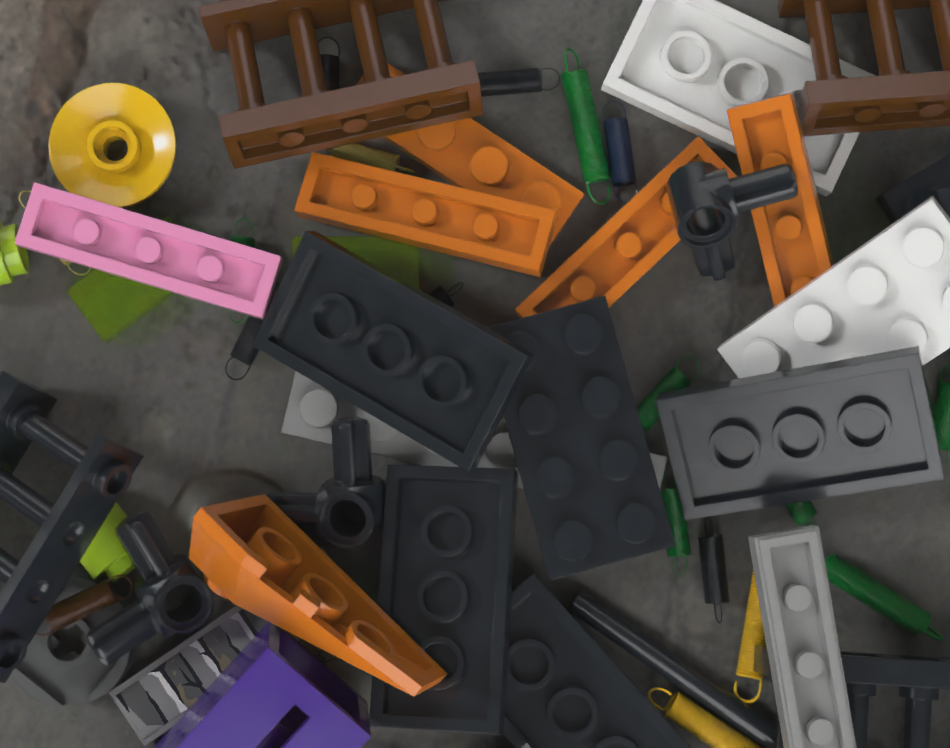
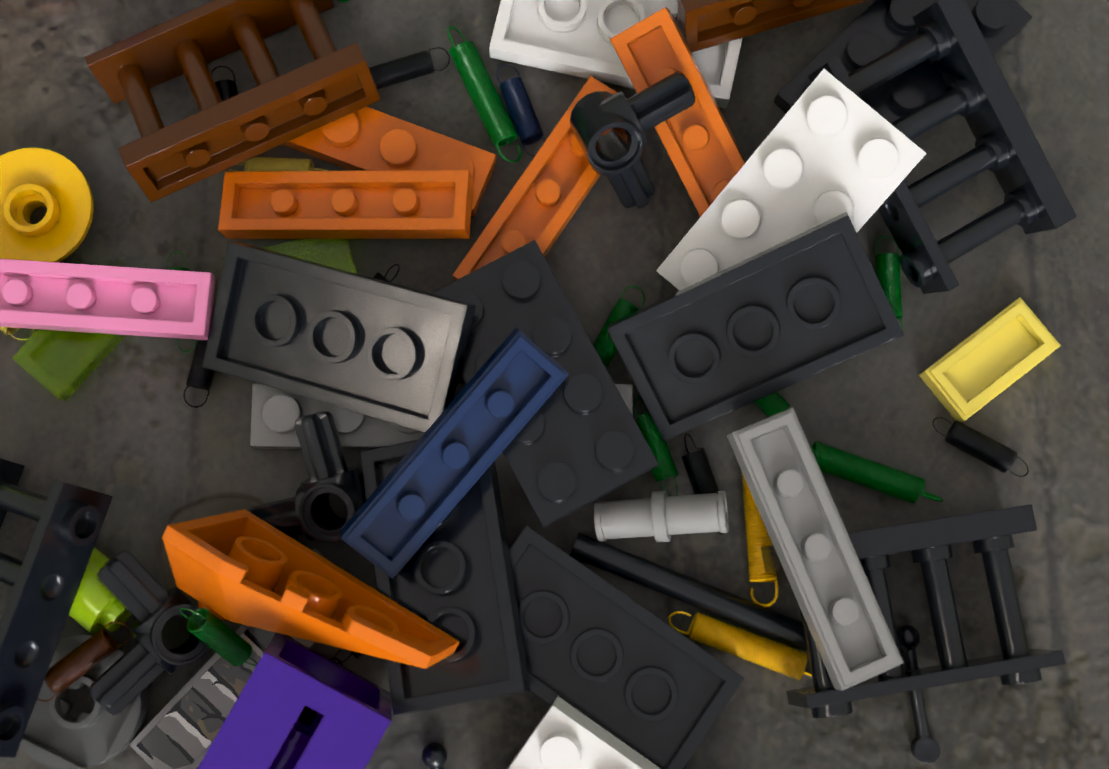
camera: 10 degrees left, 5 degrees down
(218, 614) = (219, 637): none -> green piece
(481, 492) = (453, 453): none -> dark blue tile
(665, 593) = (661, 516): none -> light grey pin

